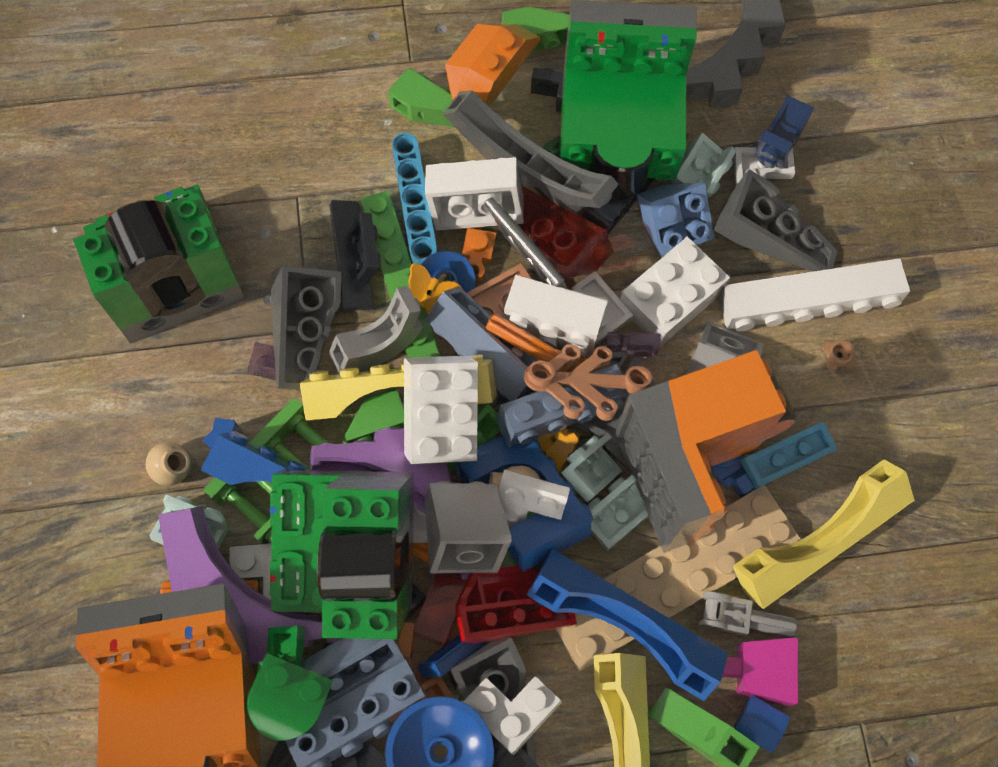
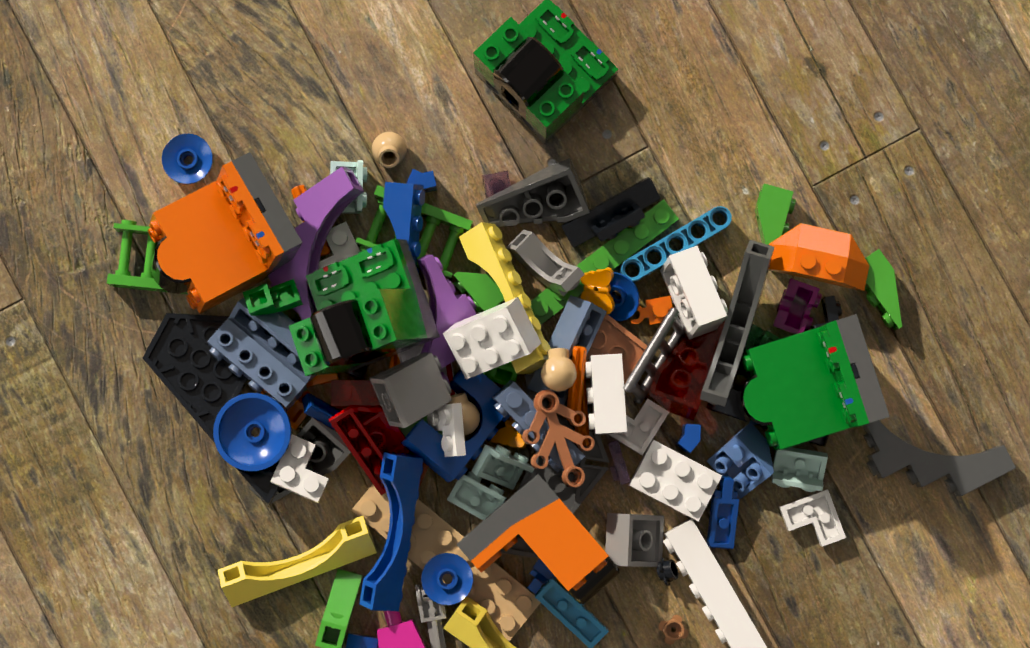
camera: 70 degrees right, 15 degrees up
(45, 712) = (178, 149): none -> blue dish
(285, 699) = (247, 314): green slope -> none
(508, 349) = (558, 371): none -> tan piece
(527, 110) = (796, 307): none -> magenta cylinder
(631, 259) = (690, 437): none -> blue piece
(716, 566) = (461, 579): none -> blue dish
(730, 255) = (723, 515): none -> blue hinge
(765, 223) = (767, 535): dark grey wedge -> none
(772, 335) = (667, 571): none -> black plate
(783, 133) = (850, 525): dark blue arch -> none

